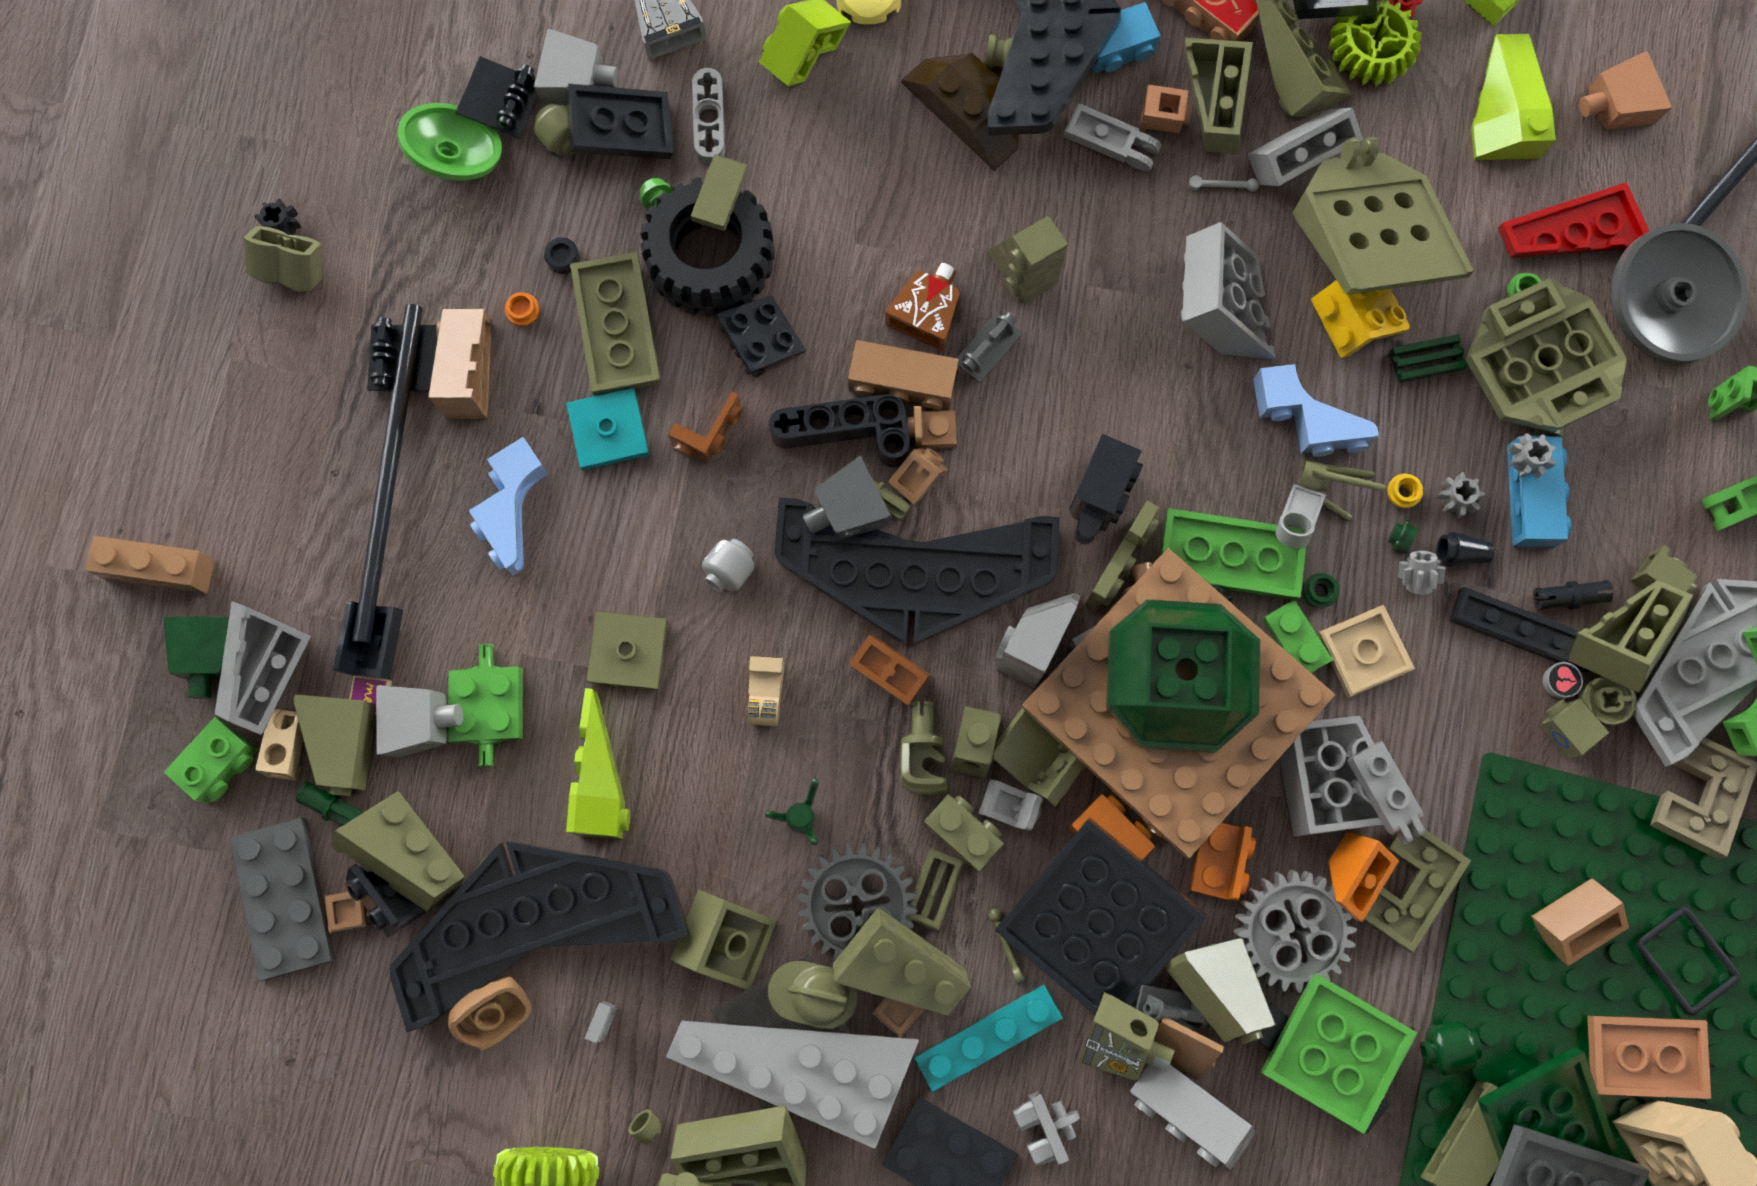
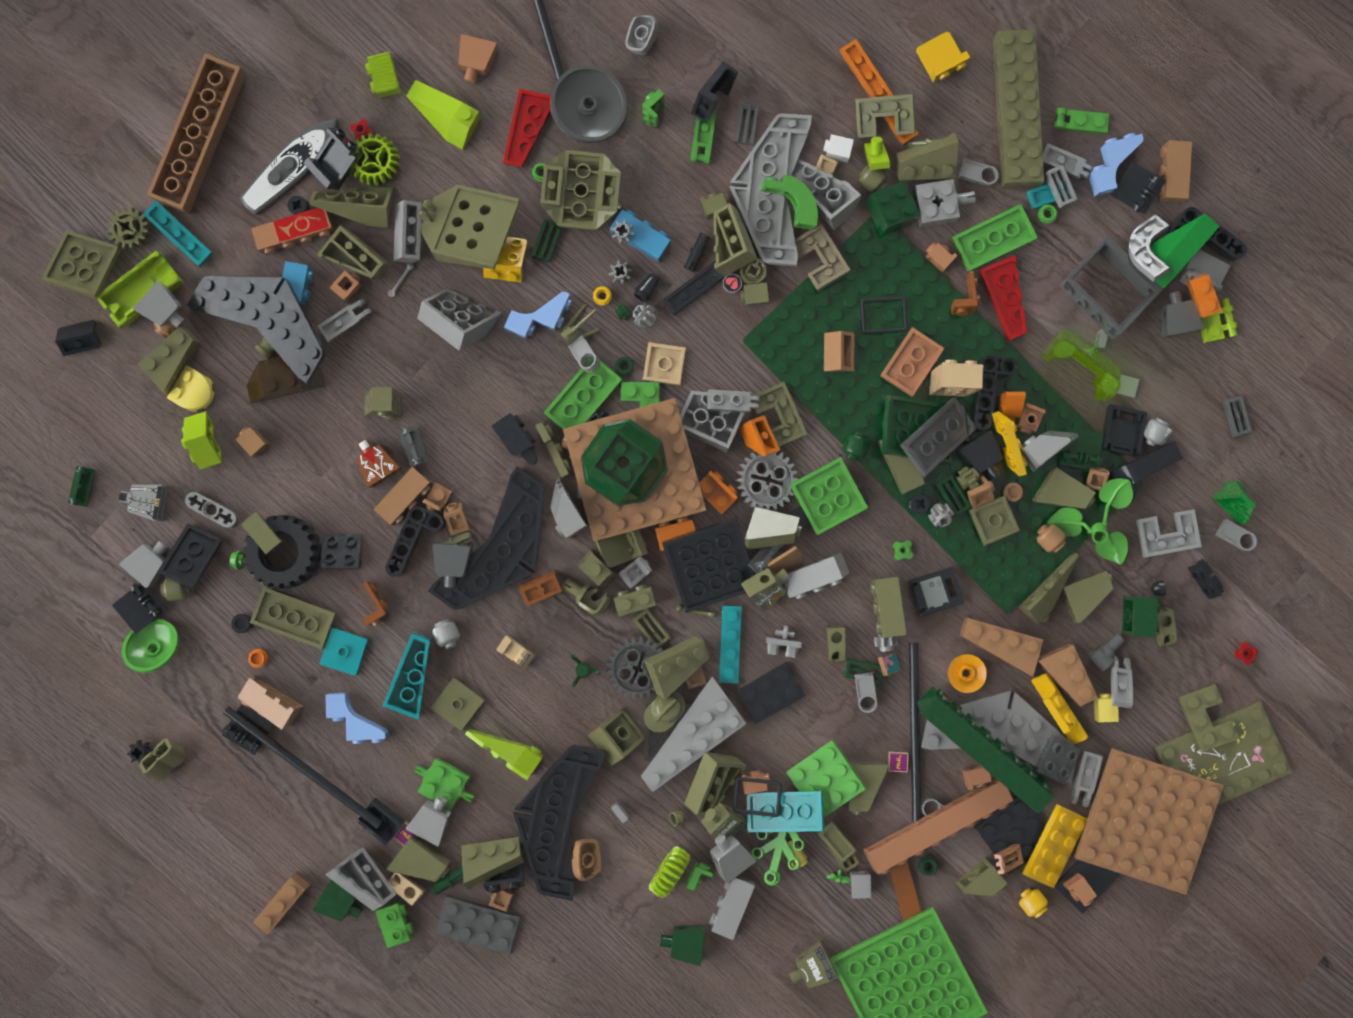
camera: 55 degrees left, 10 degrees up
(621, 550) = (408, 682): none -> teal wedge
(846, 112) = (252, 441): none -> medium nougat brick

